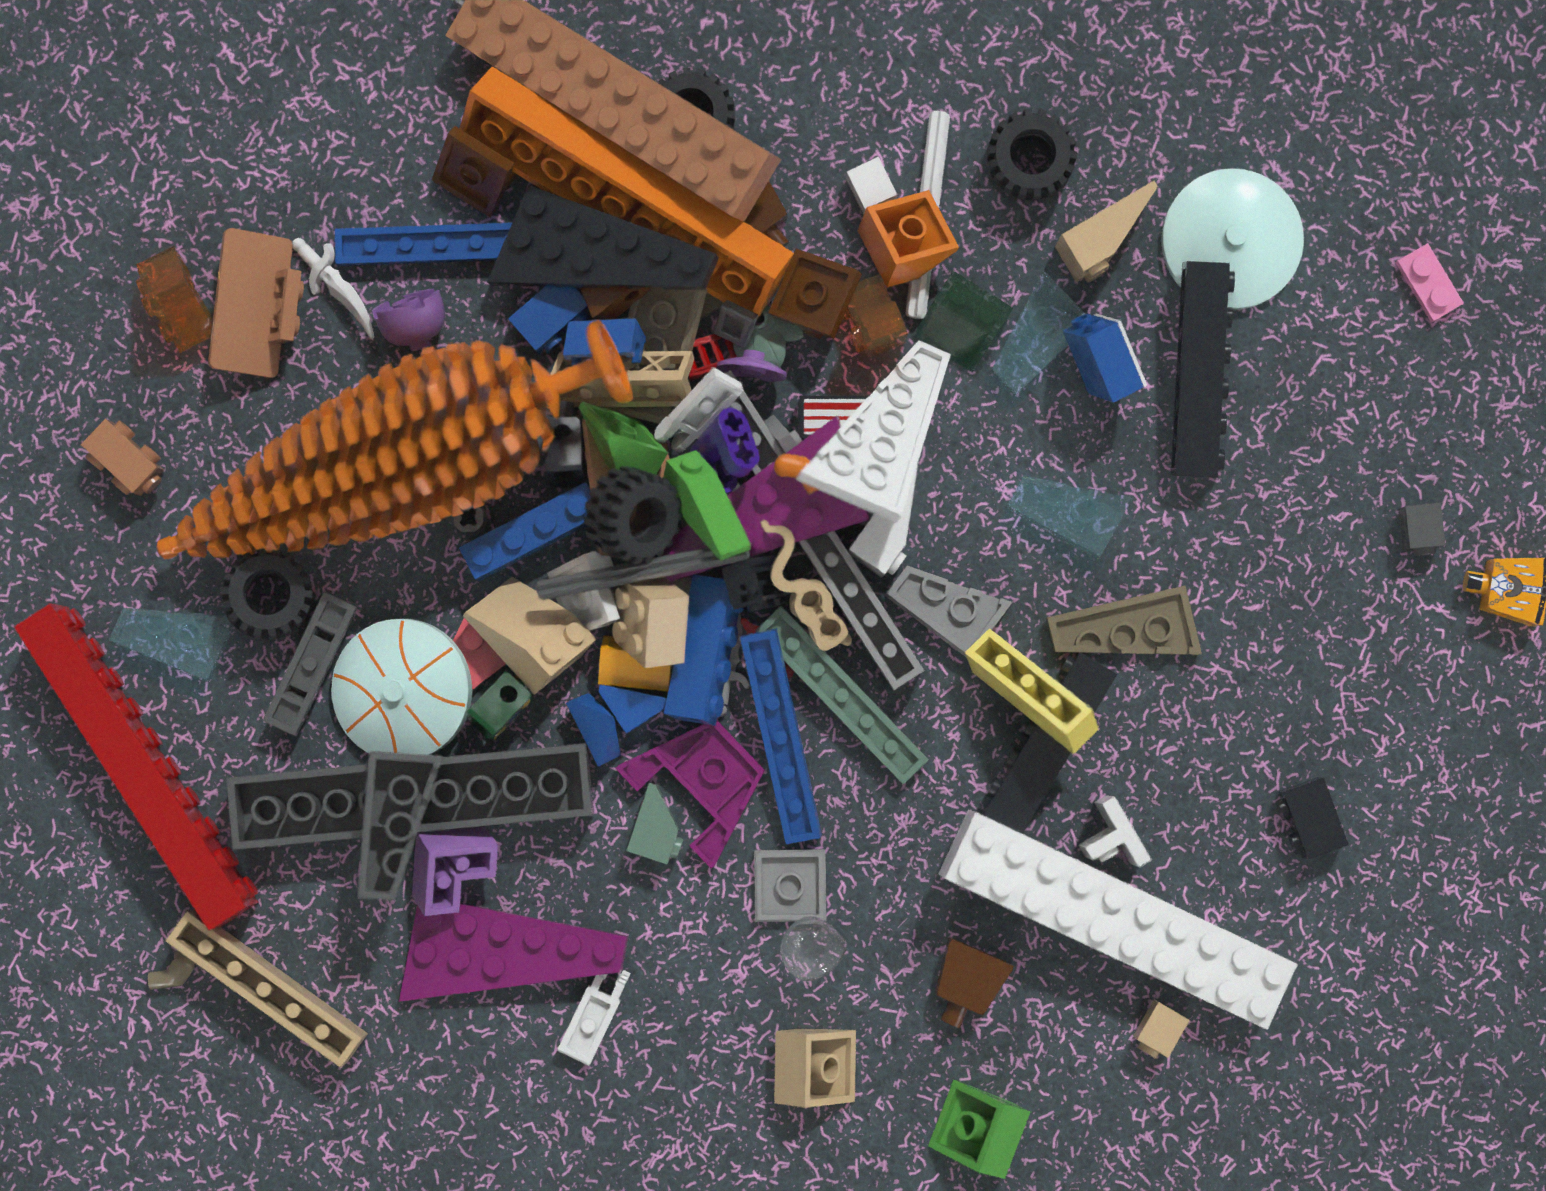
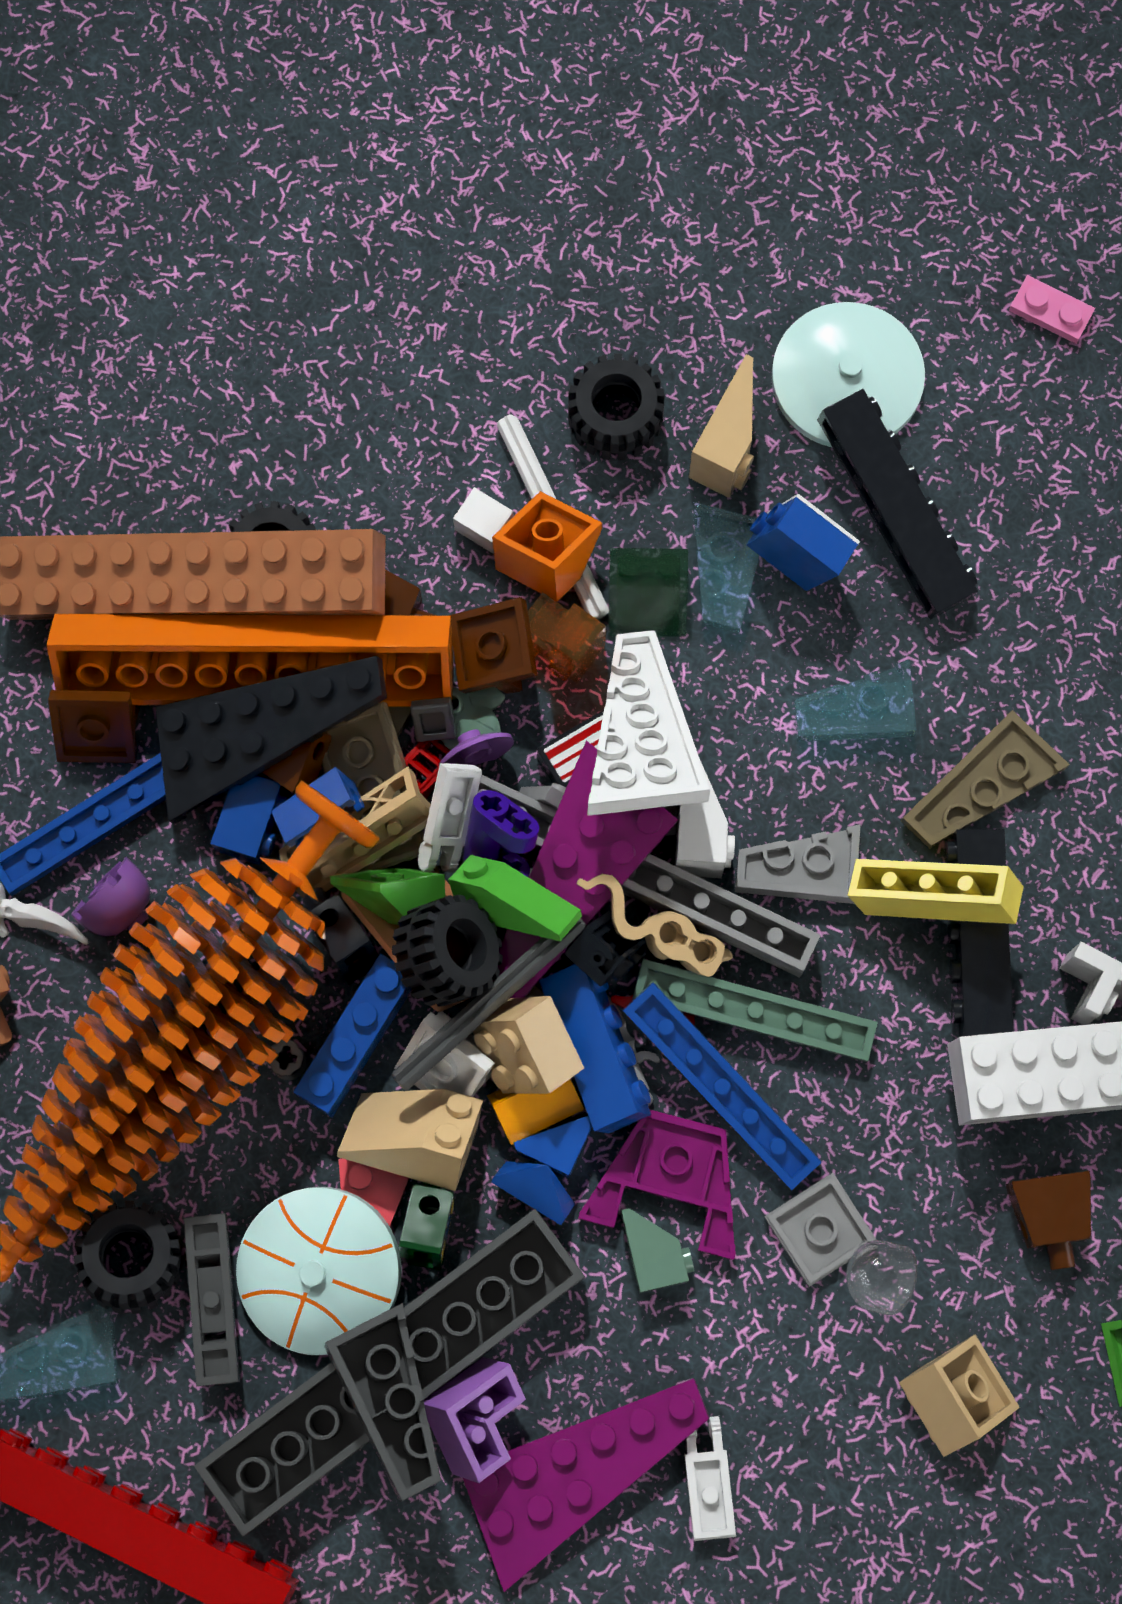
camera: 30 degrees left, 10 degrees down
(790, 466) = (575, 811): orange arm -> none

